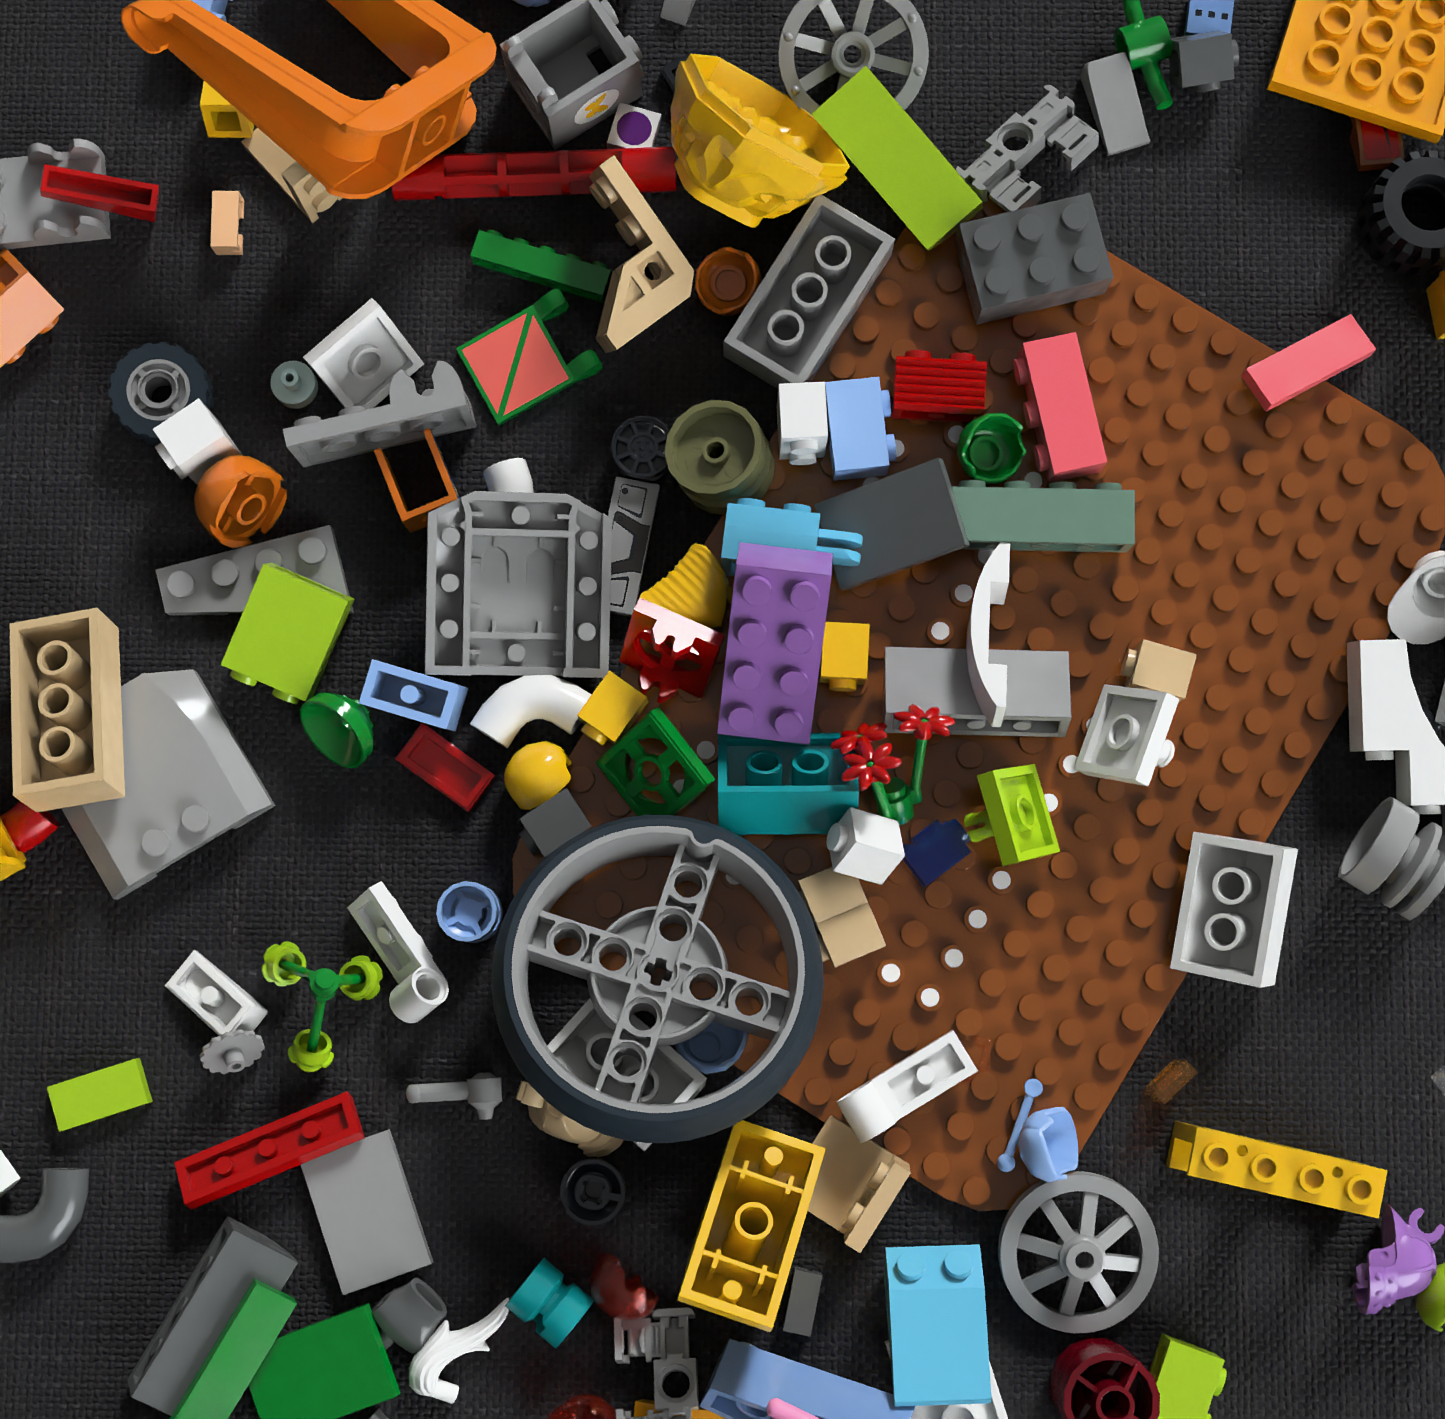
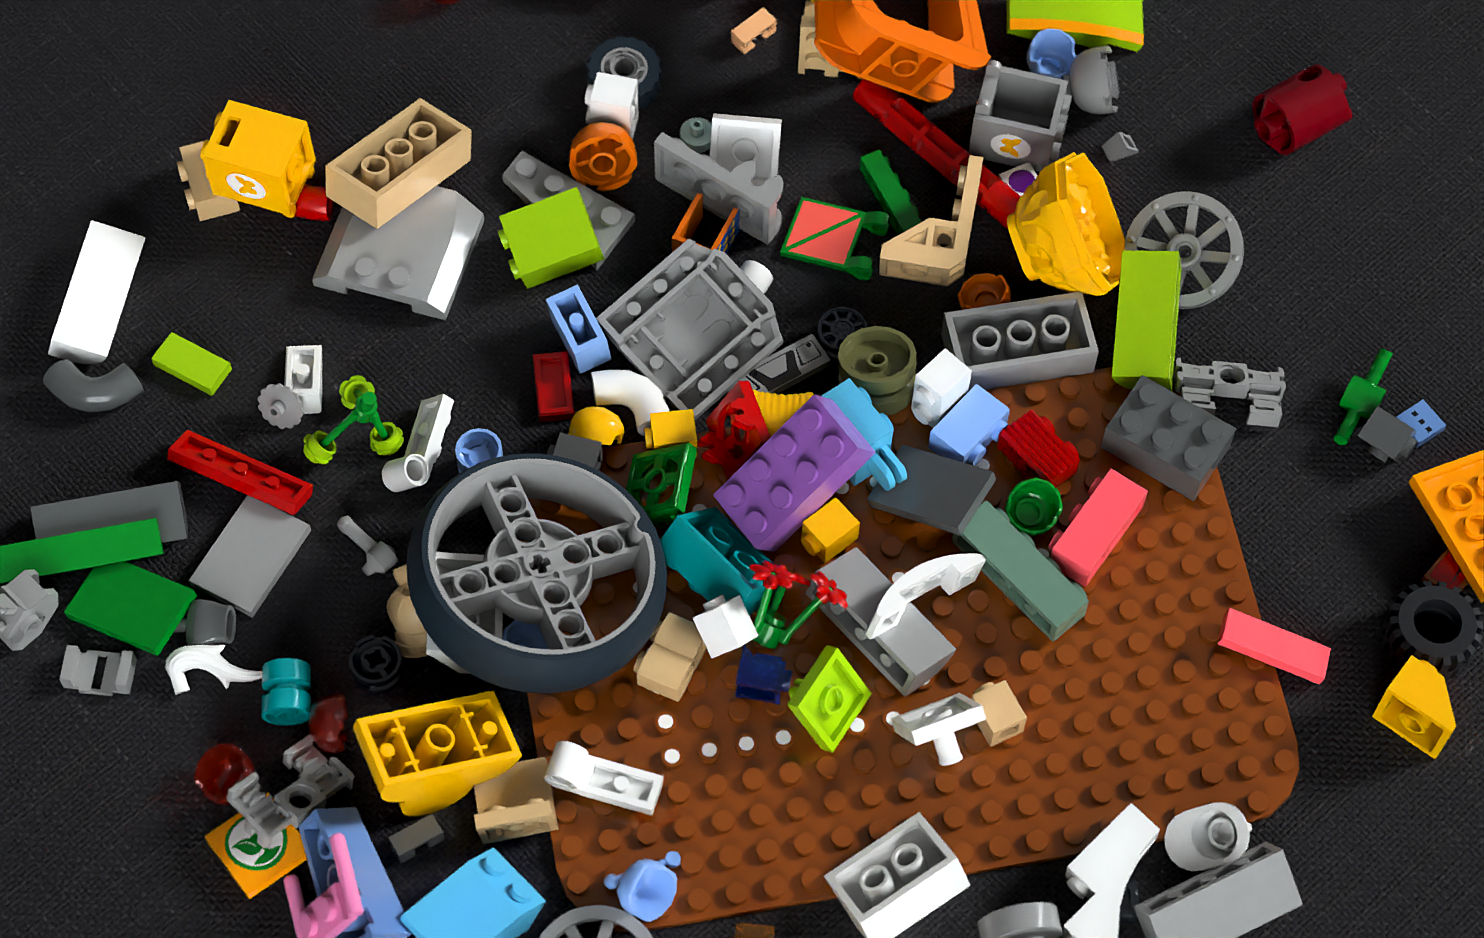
camera: 45 degrees right, 20 degrees down
(338, 728) = (522, 308): green piece -> none
(1115, 103) = (1312, 414): light grey slope -> none

